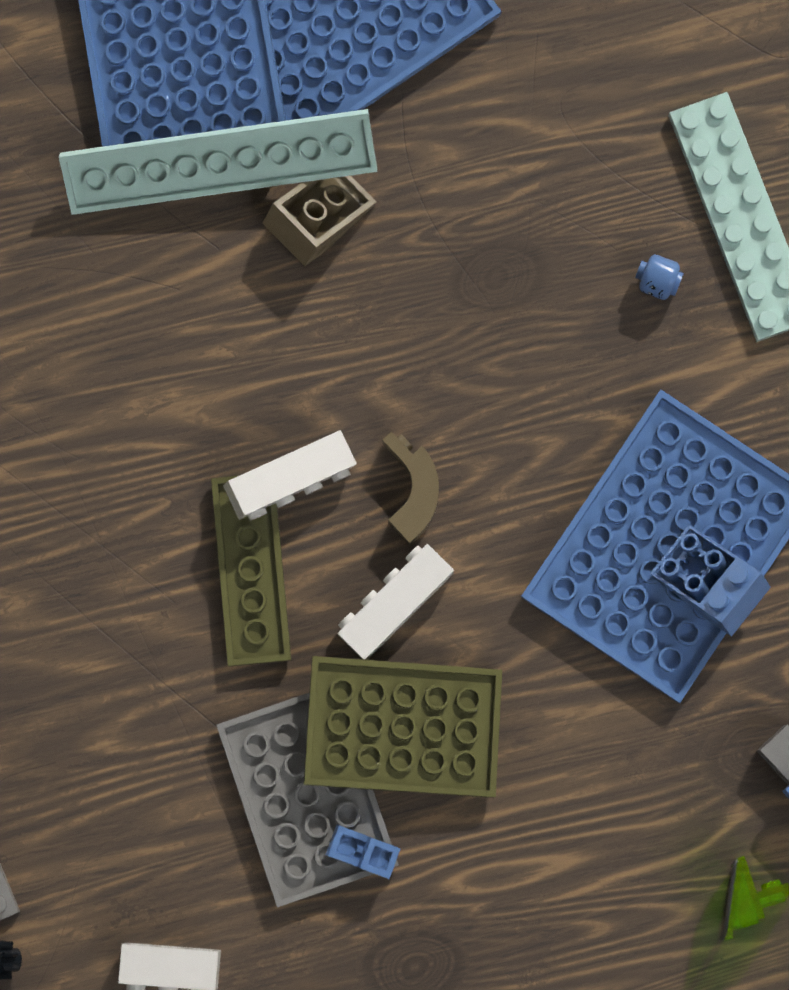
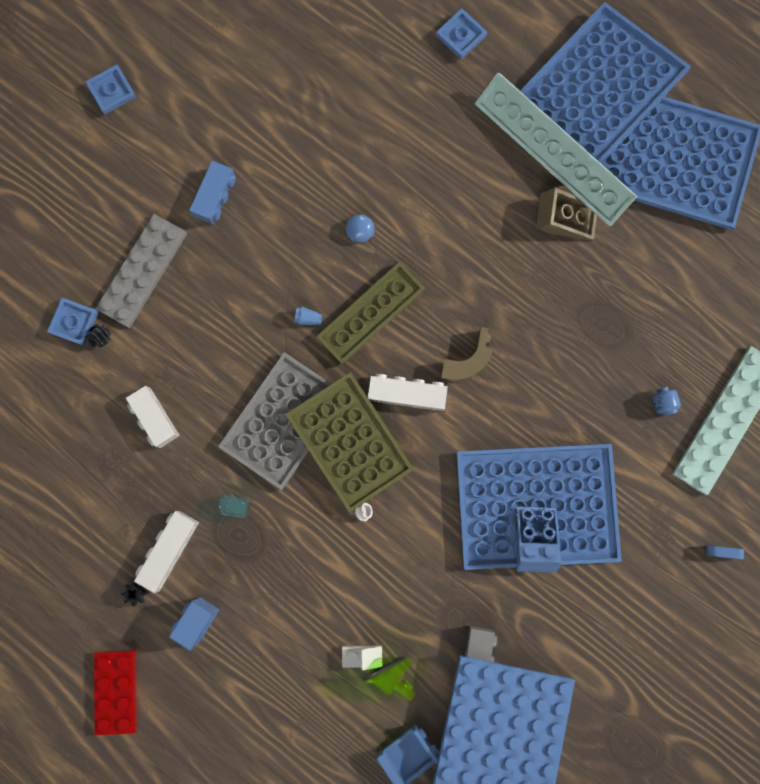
camera: 50 degrees right, 0 degrees up
(124, 497) = (360, 228): none -> medium blue hair
(190, 659) = (307, 317): none -> medium blue cone
(289, 475) = (429, 295): white brick -> none
(362, 851) = (274, 467): medium blue slope -> none
(372, 944) = (234, 506): none -> clear light blue brick
(508, 777) = (364, 512): none -> white plate
(693, 920) = (362, 657): none -> white slope

